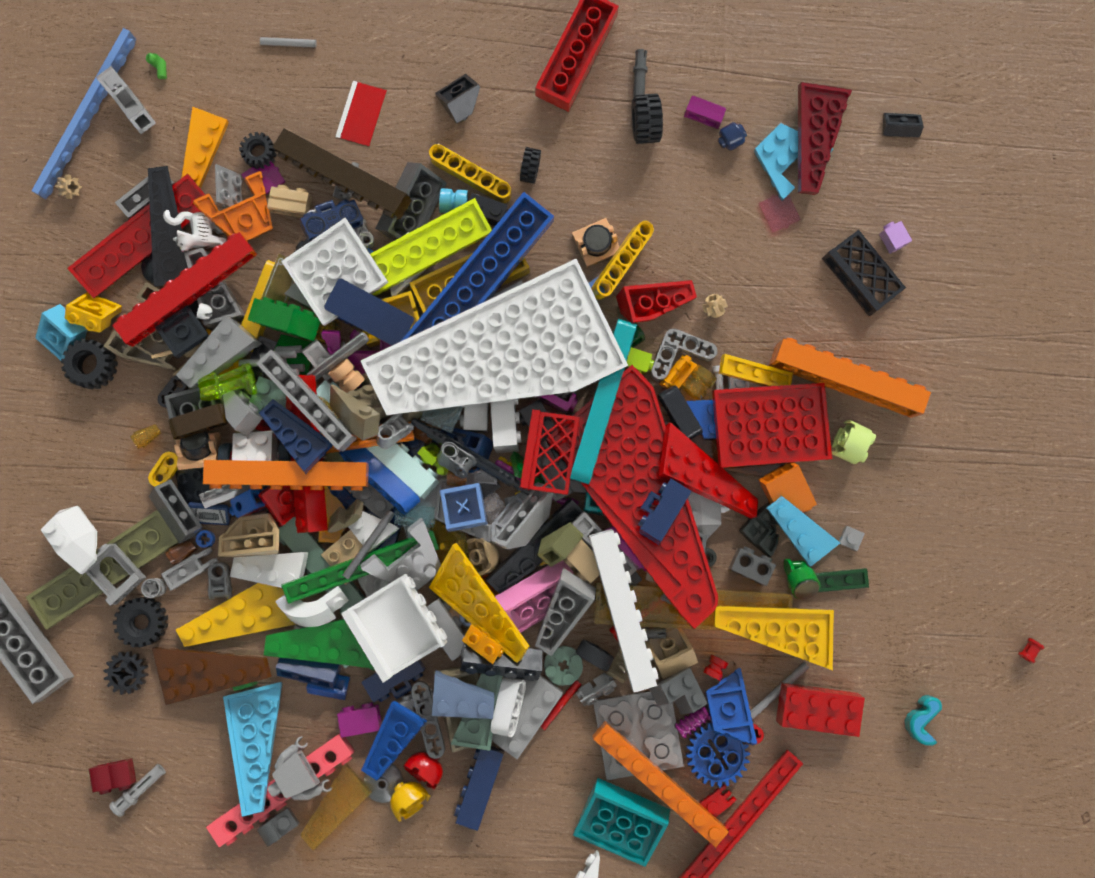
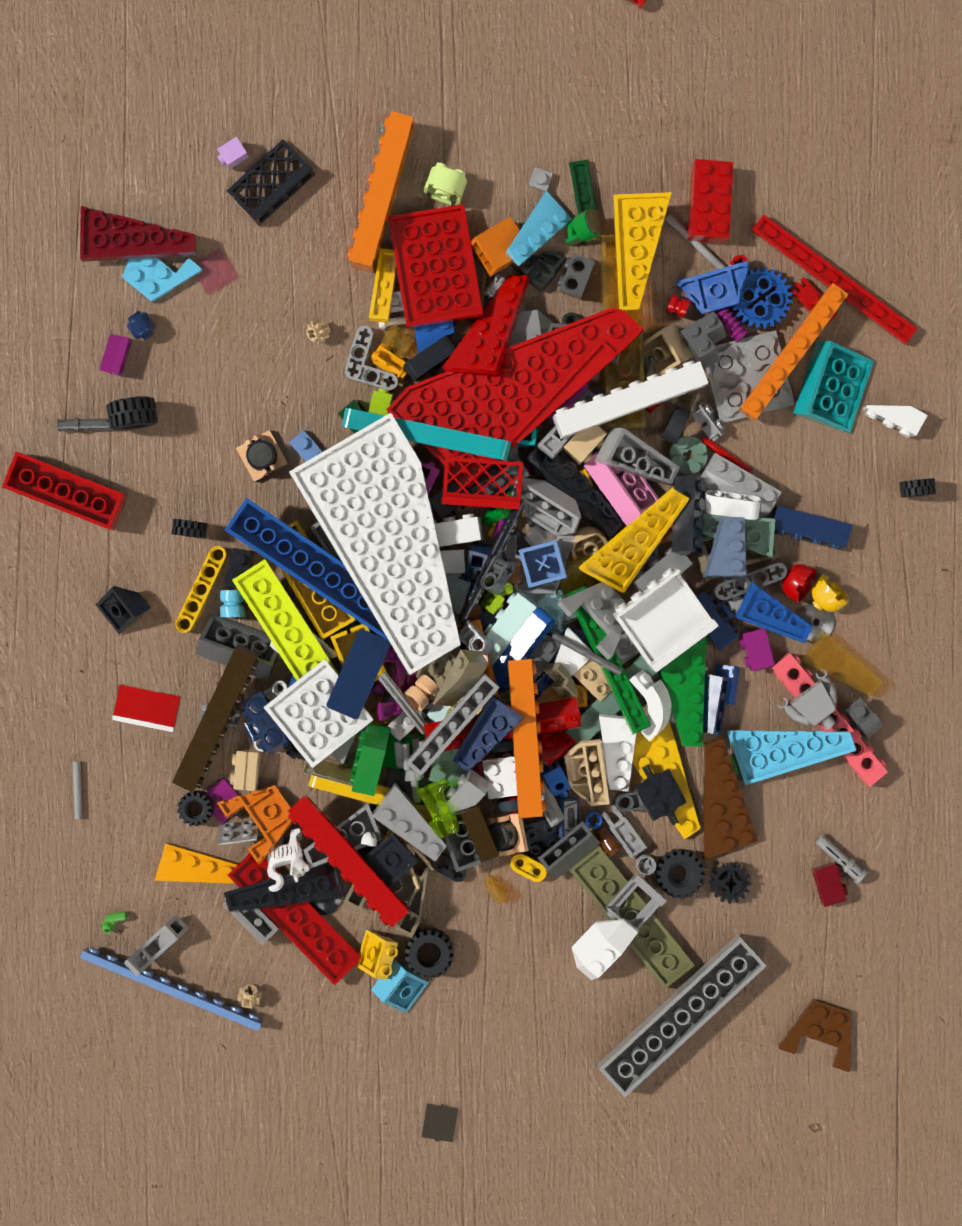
camera: 90 degrees left, 5 degrees up
(221, 608) = (660, 794): none -> black plate
(482, 644) = (674, 533): light orange hinge -> none
(559, 544) = (571, 466): olive slope -> none
(628, 254) = (275, 420): yellow beam -> none
(650, 301) = (320, 397): red wedge -> none
(670, 503) = (539, 368): dark blue piece -> none
(746, 482) = (494, 286): none -> light grey pin
(902, 125) = (112, 151): black slope -> none
(919, 718) = (710, 102): teal animal -> none

